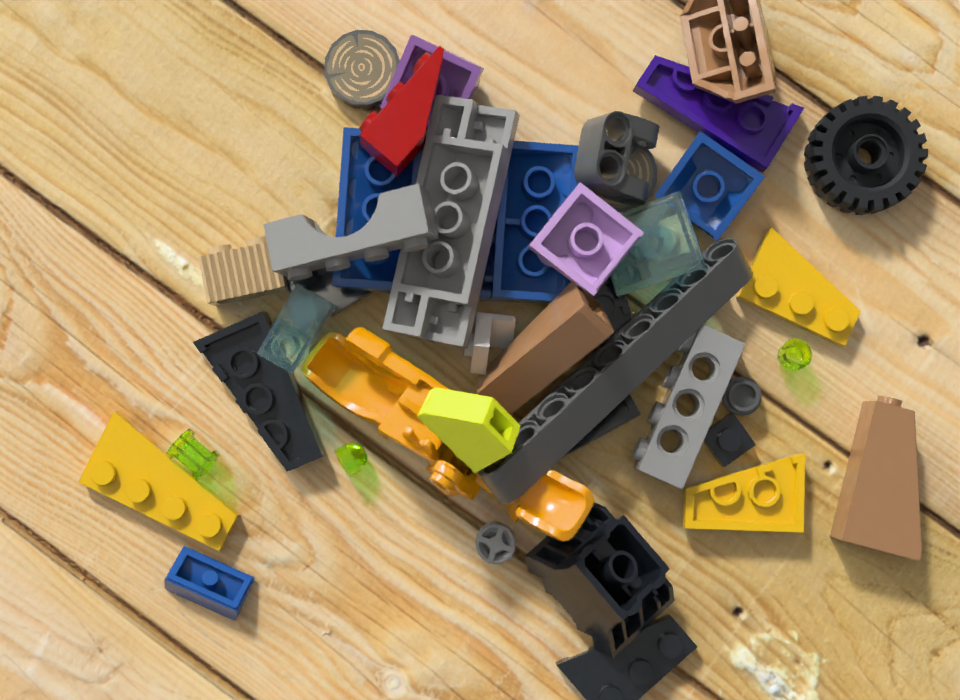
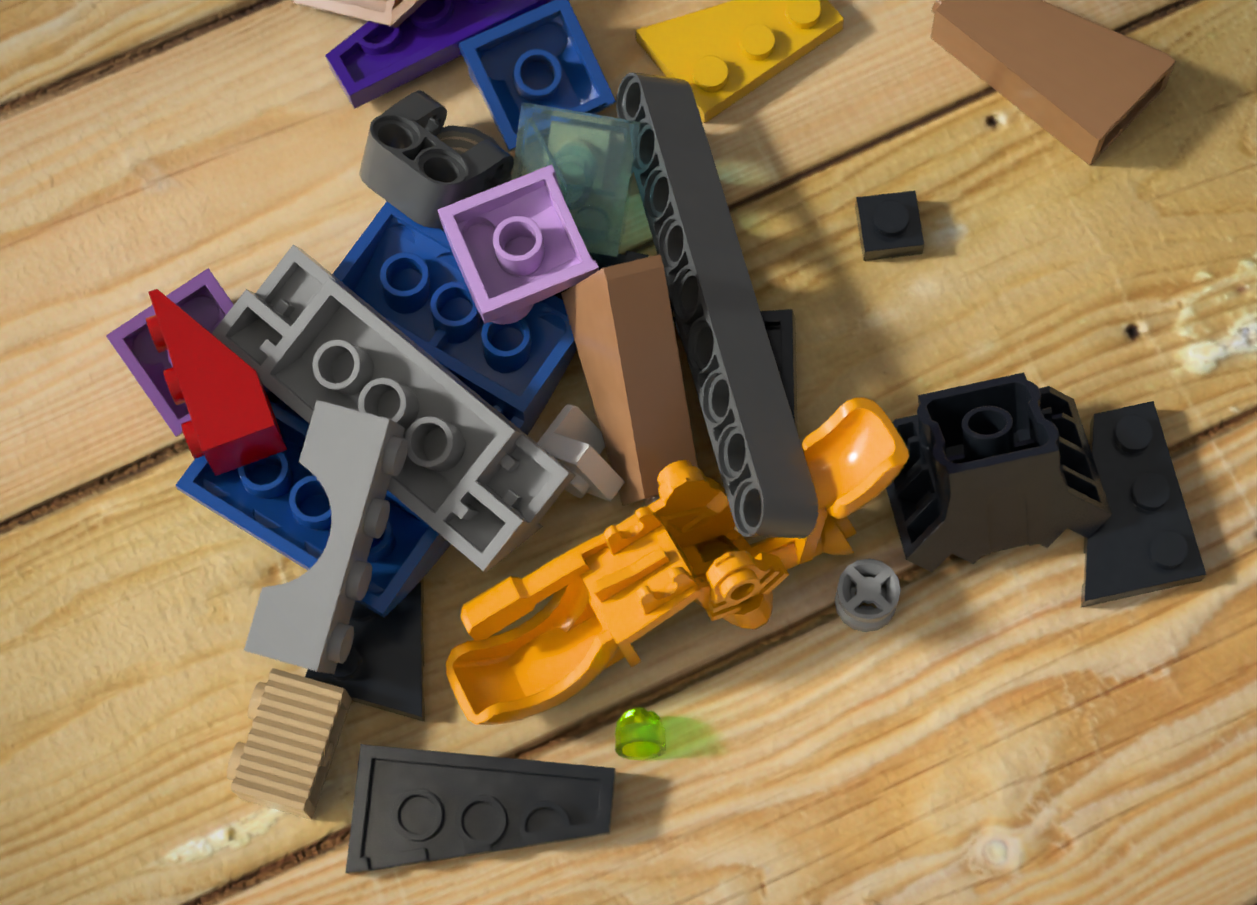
camera: 50 degrees left, 15 degrees down
(296, 328) = (412, 695): clear light blue slope -> none
(361, 68) = (107, 438): dark tan tile -> none
(470, 426) = (682, 500): neon yellow slope -> none
(722, 356) = (771, 172): light grey brick -> none
(742, 396) = (839, 177): dark grey plate -> none
(751, 499) = (985, 234): yellow wing -> none
(797, 350) = (816, 82): clear neon green hinge -> none

